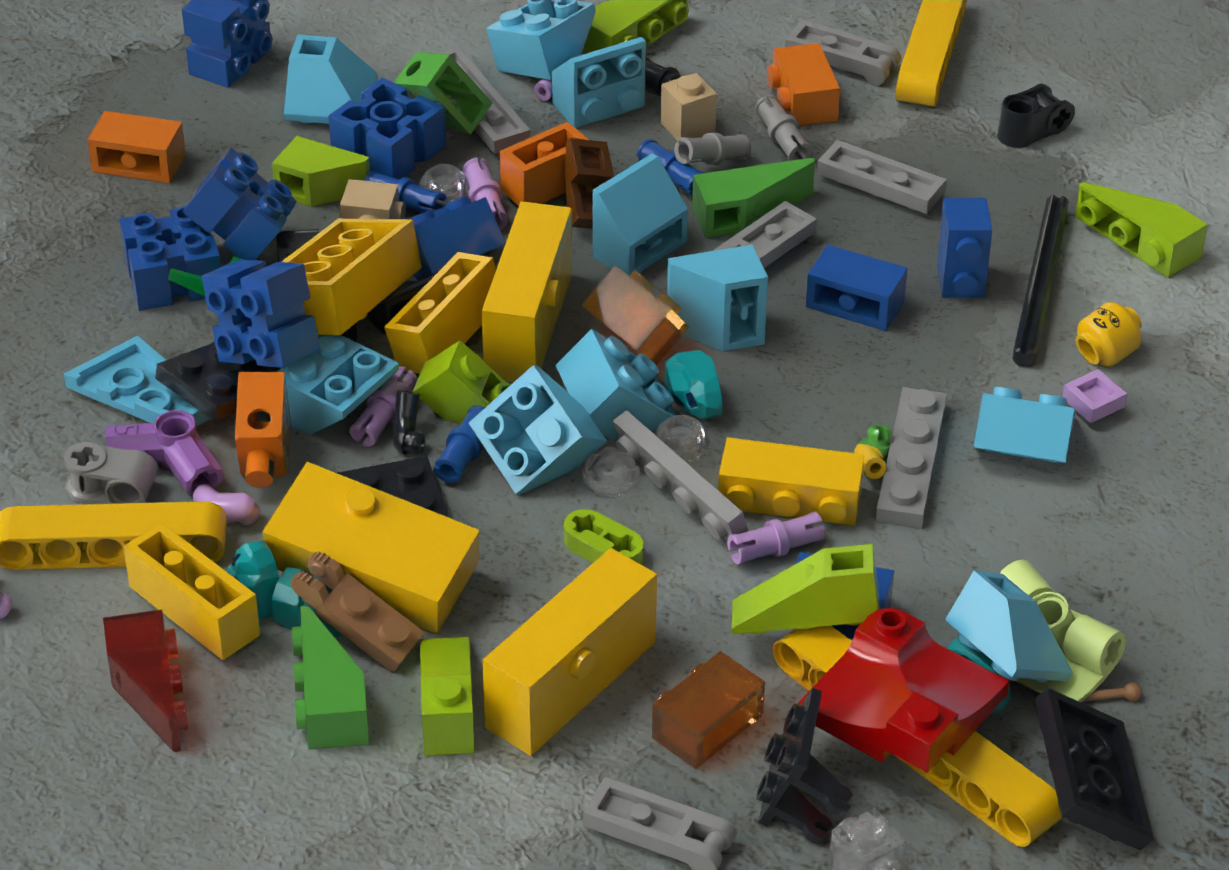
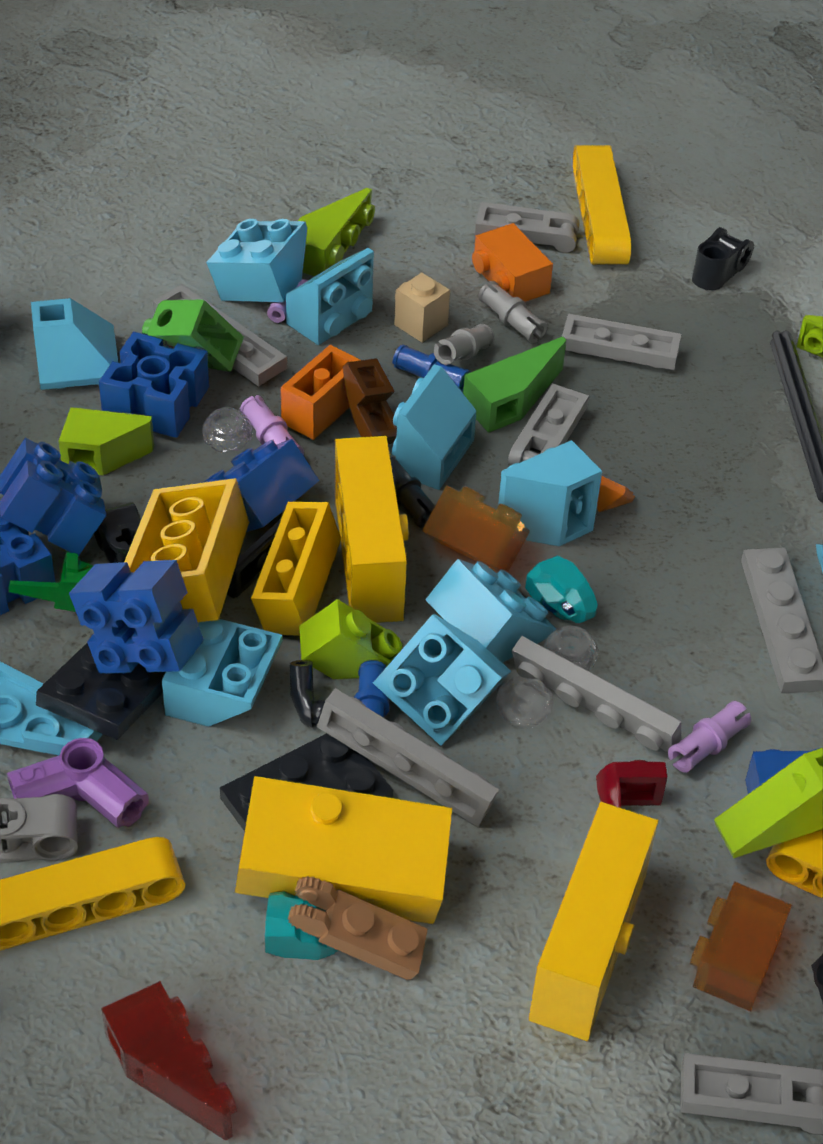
camera: 20 degrees left, 5 degrees up
(192, 590) = (178, 947): yellow brick -> none
(238, 506) = (179, 829): lavender arm -> none
(257, 571) = (234, 920): teal rock -> none
(262, 445) = (173, 738): orange torso -> none
(332, 687) = (368, 1021): bright green slope -> none
(371, 201) = (171, 465): tan brick -> none
(381, 408) = (275, 686): lavender pin -> none
(414, 196) = (194, 445): blue pin -> none
(446, 696) = (482, 995): lime slope -> none
(468, 488) = (407, 757): none -> light grey plate
(588, 268) = (410, 494): none -> black axle
(592, 534) = (550, 779): lime beam -> none
(657, 75) = (385, 283): black pin -> none
(677, 559) = (632, 783): none -> dark red plate
(791, 480) = (698, 671): yellow brick -> none
(792, 312) = (612, 495): none -> orange slope
(856, 287) = (656, 457): blue brick -> none
(876, 449) = (747, 623): arm -> none
(964, 247) = (738, 399): blue brick -> none

